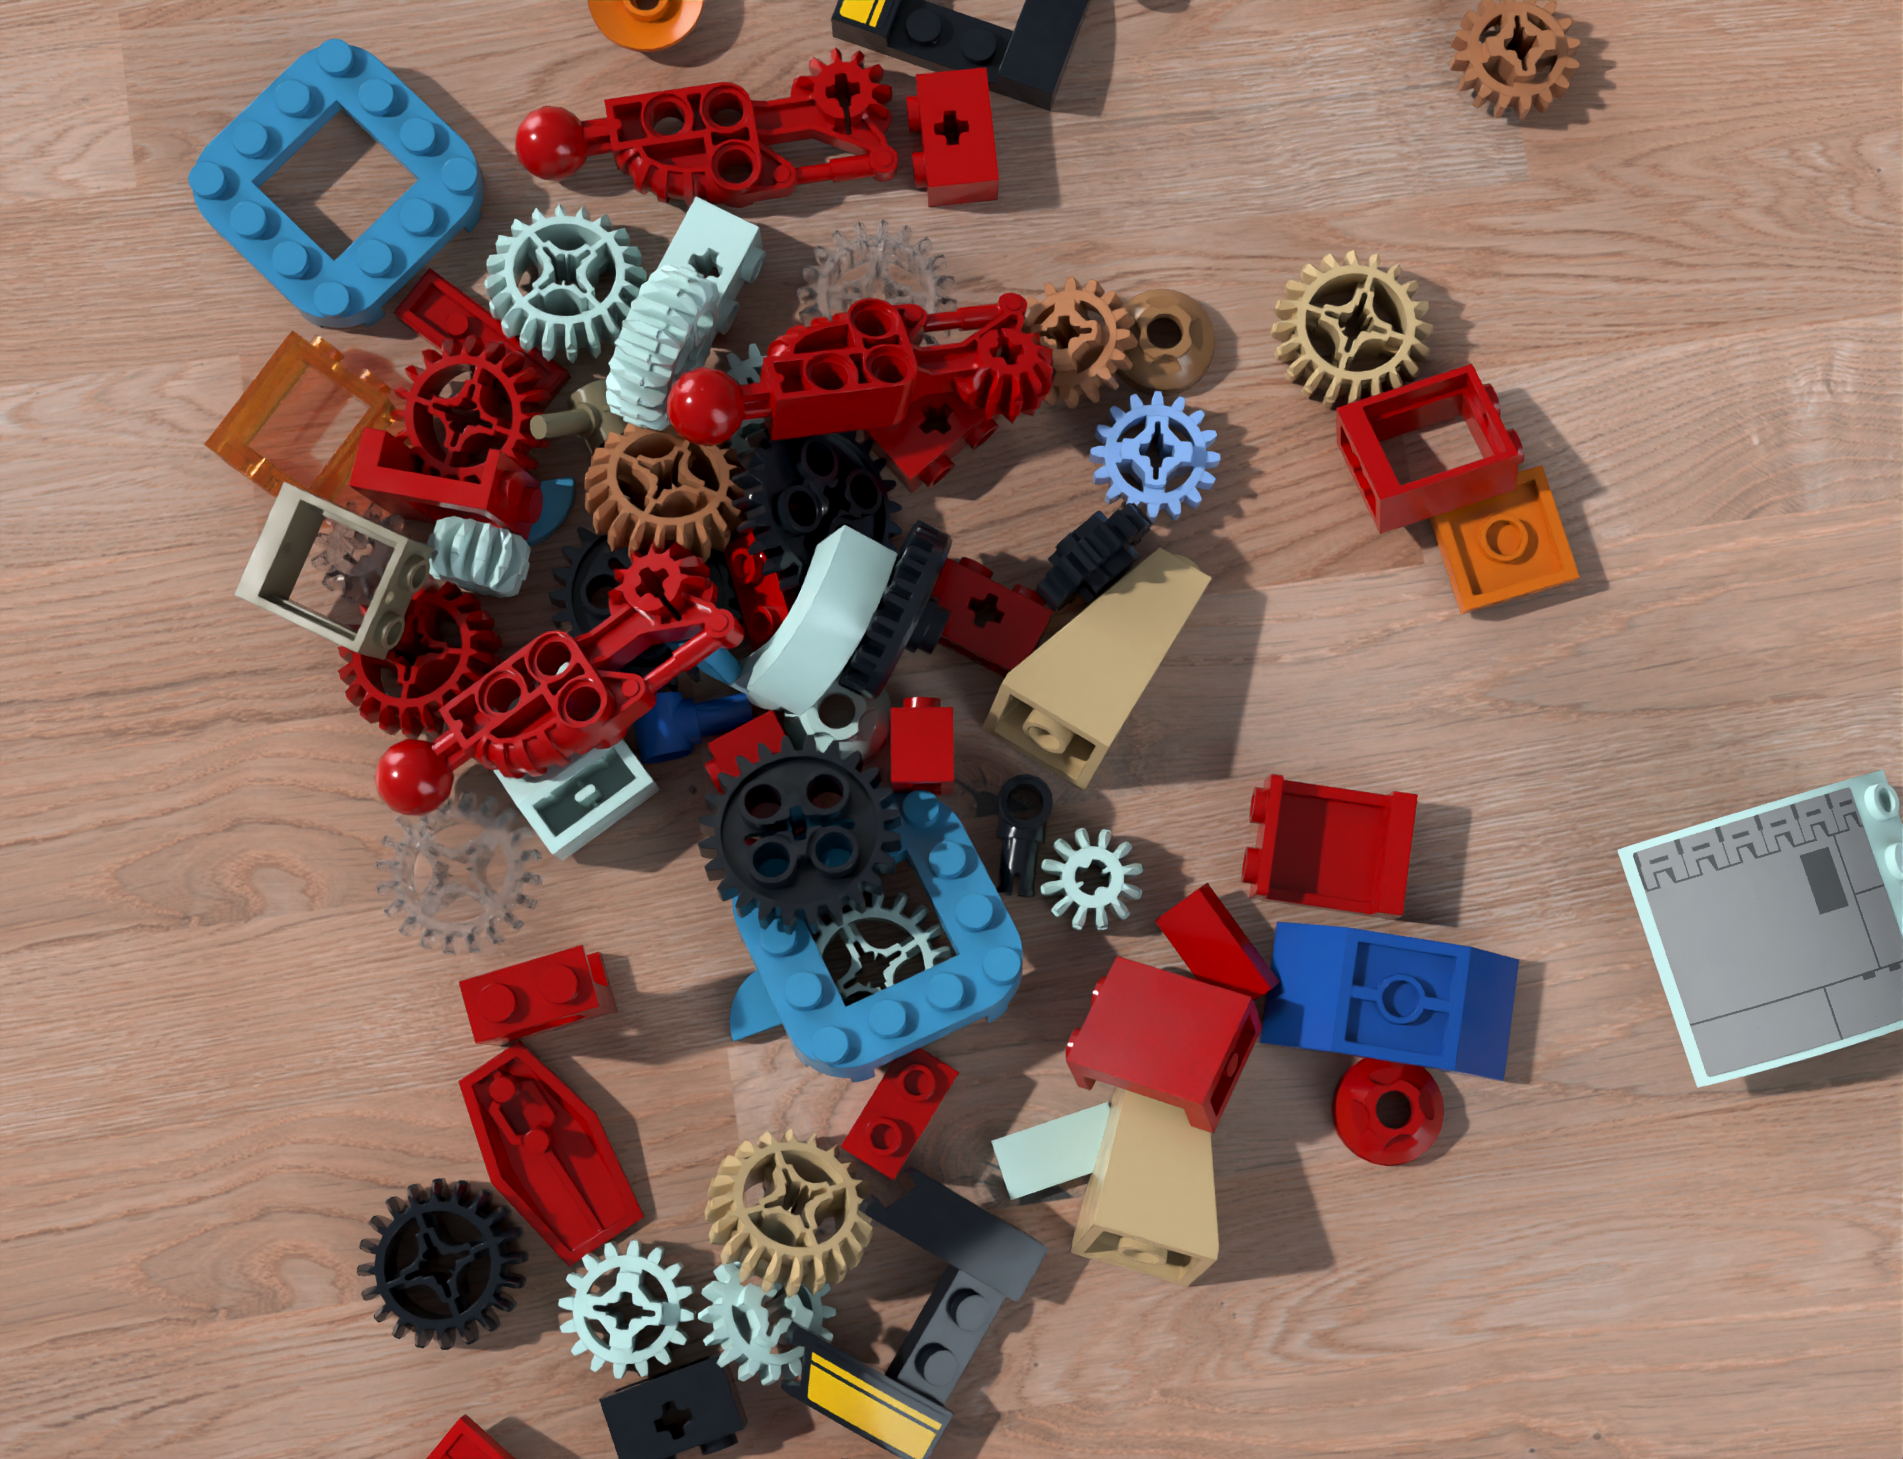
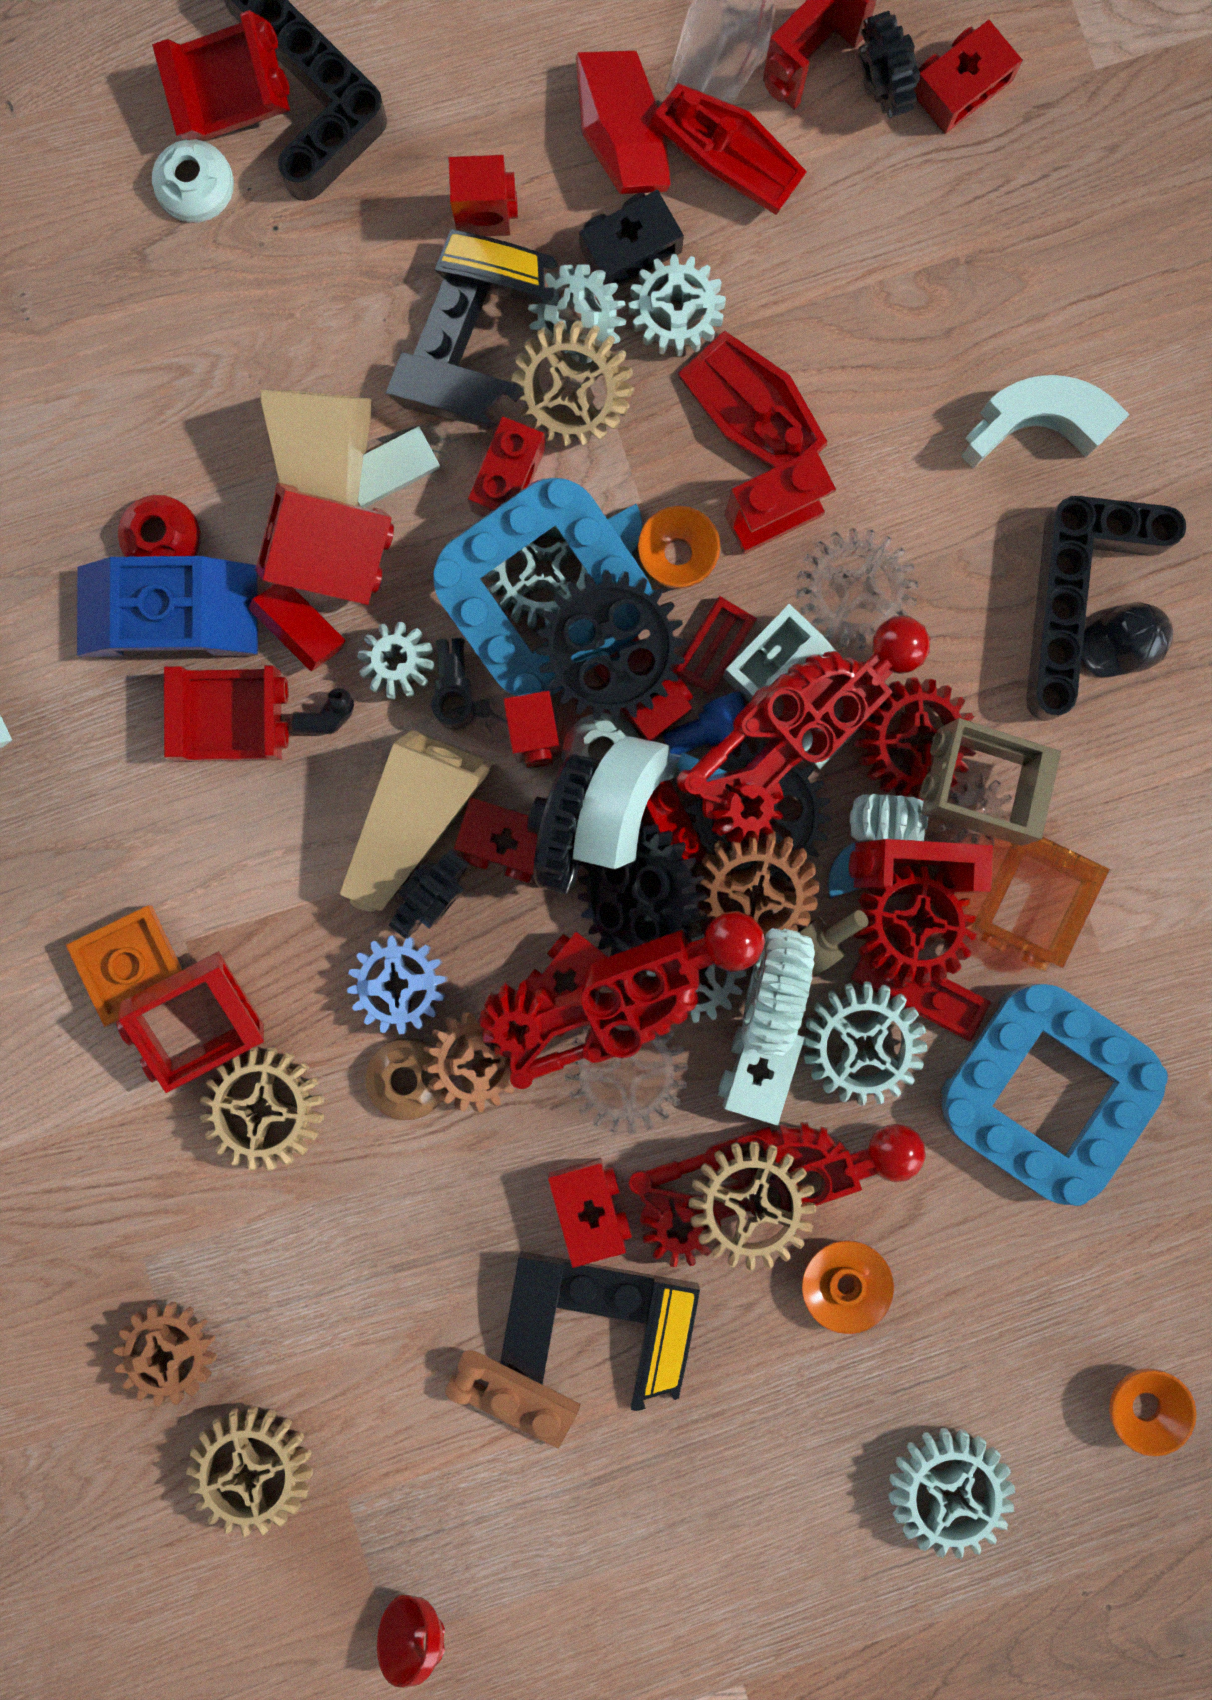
camera: 175 degrees right, 5 degrees up
(115, 750) = (1127, 640): none -> black piece
(115, 1071) = (1052, 401): none -> light aqua arch
(166, 824) = (1074, 588): none -> black beam
(432, 1236) = (797, 283): black gear -> none
(643, 819) = (694, 678): none -> red tile
(653, 960) = (684, 525): none -> orange piece
(765, 54) = (738, 1244): none -> tan gear
(1193, 820) = (330, 716): none -> black arm

